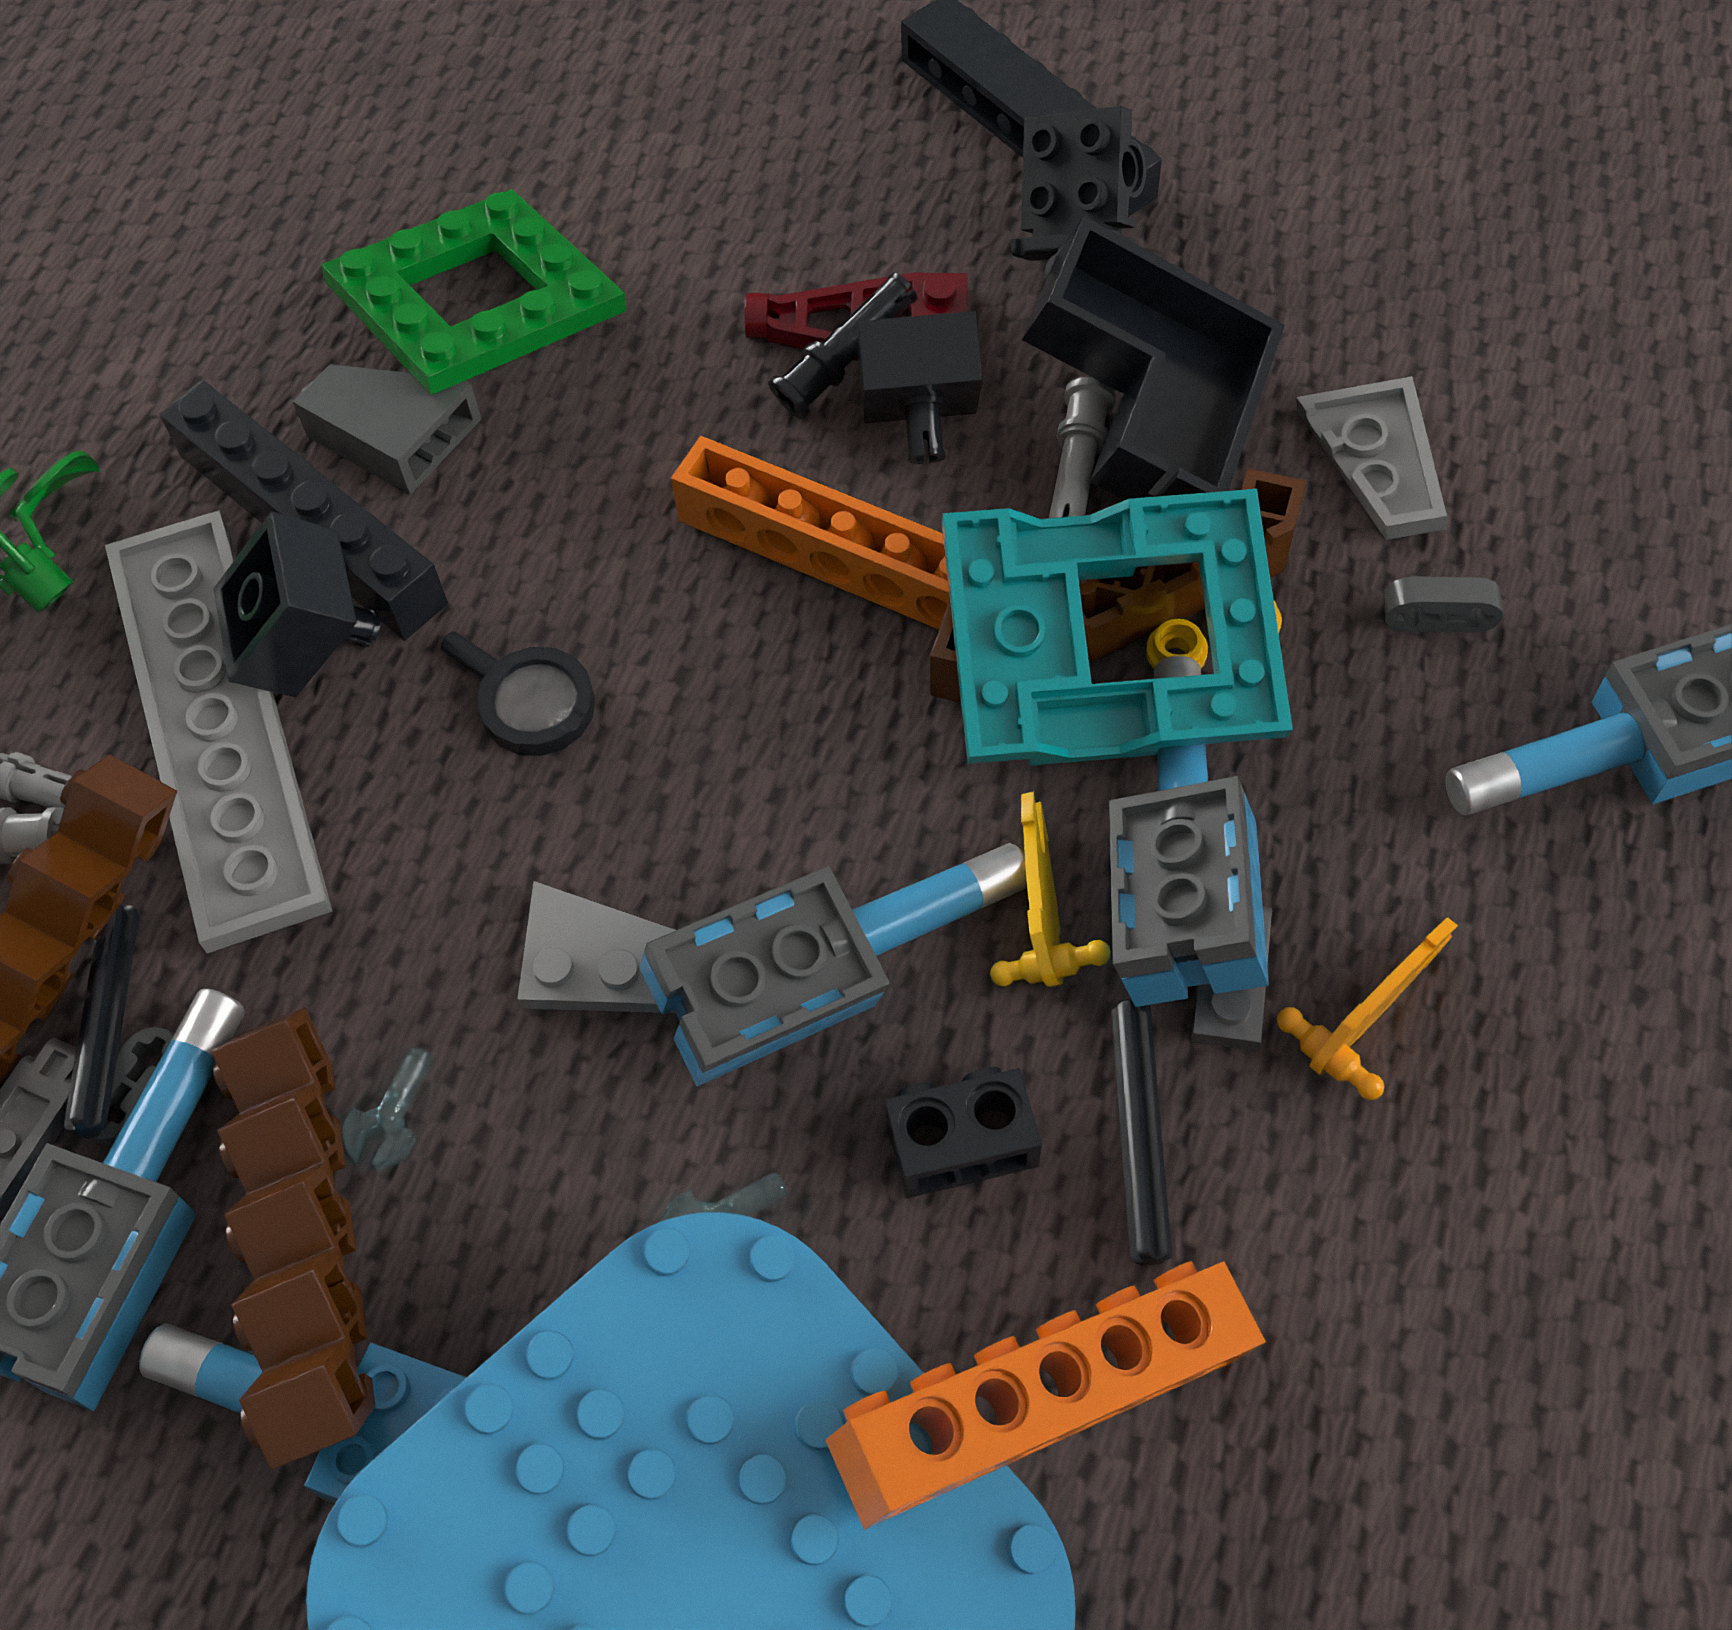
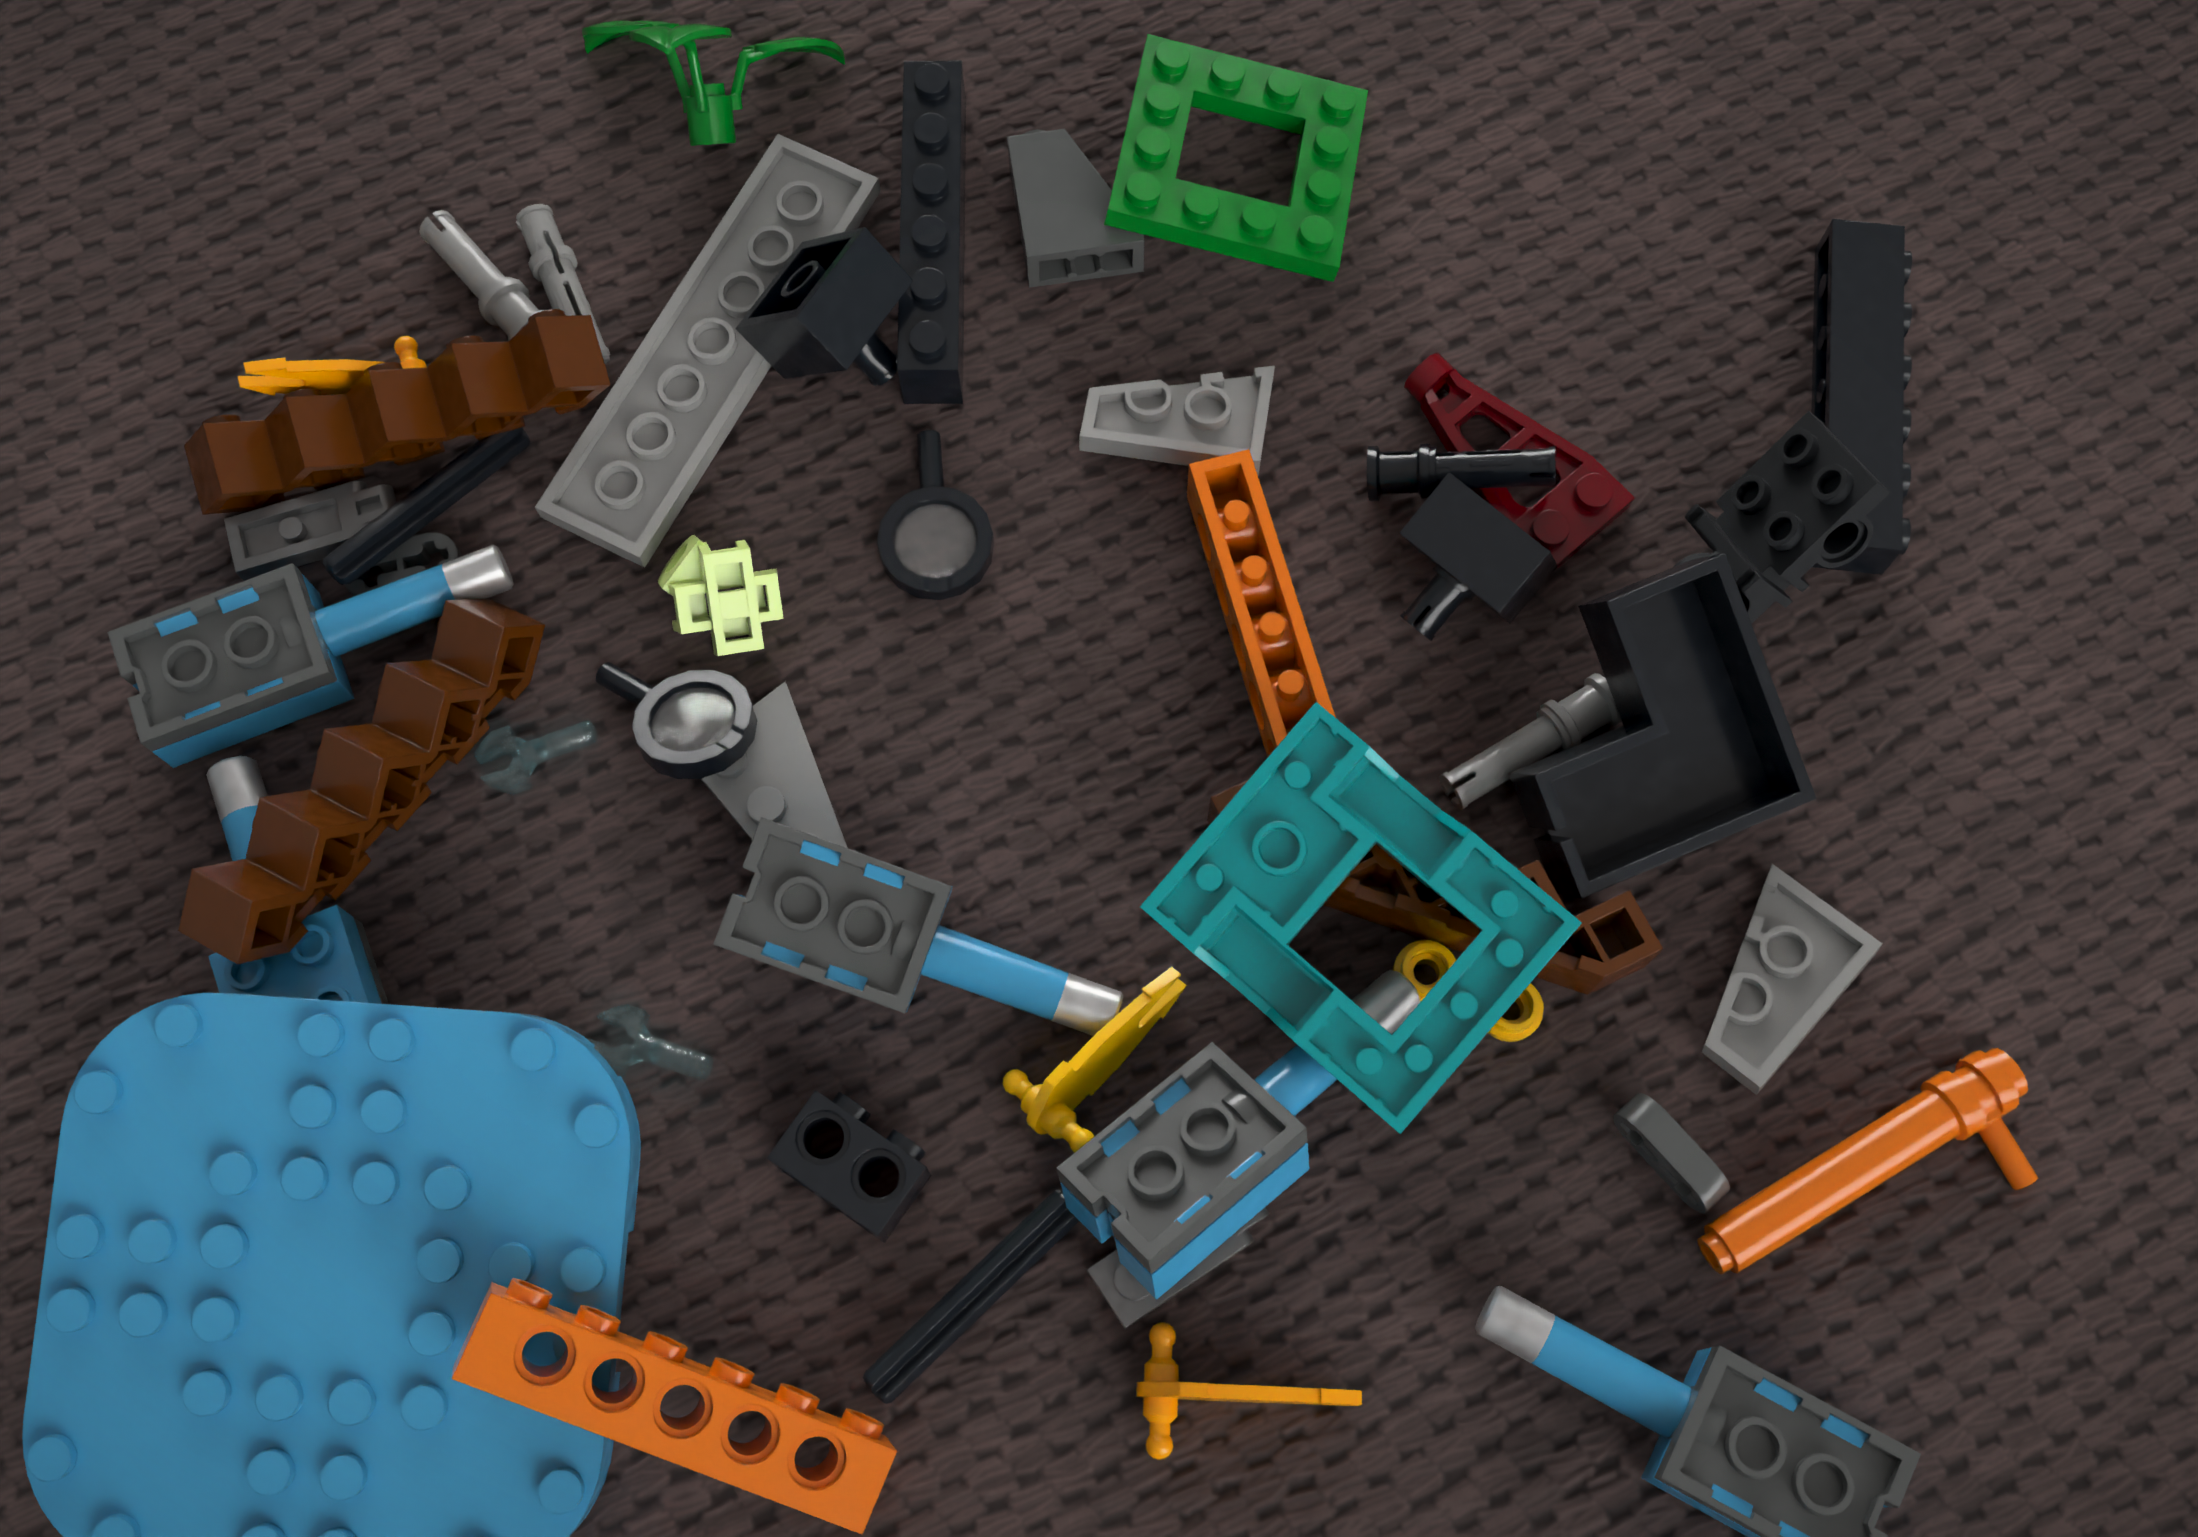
camera: 45 degrees right, 10 degrees up
(395, 852) = (732, 613): none -> yellowish green piece
(492, 969) = (688, 721): none -> piece
(619, 480) = (1180, 420): none -> light grey wing
(1552, 433) = (1946, 1108): none -> orange cylinder

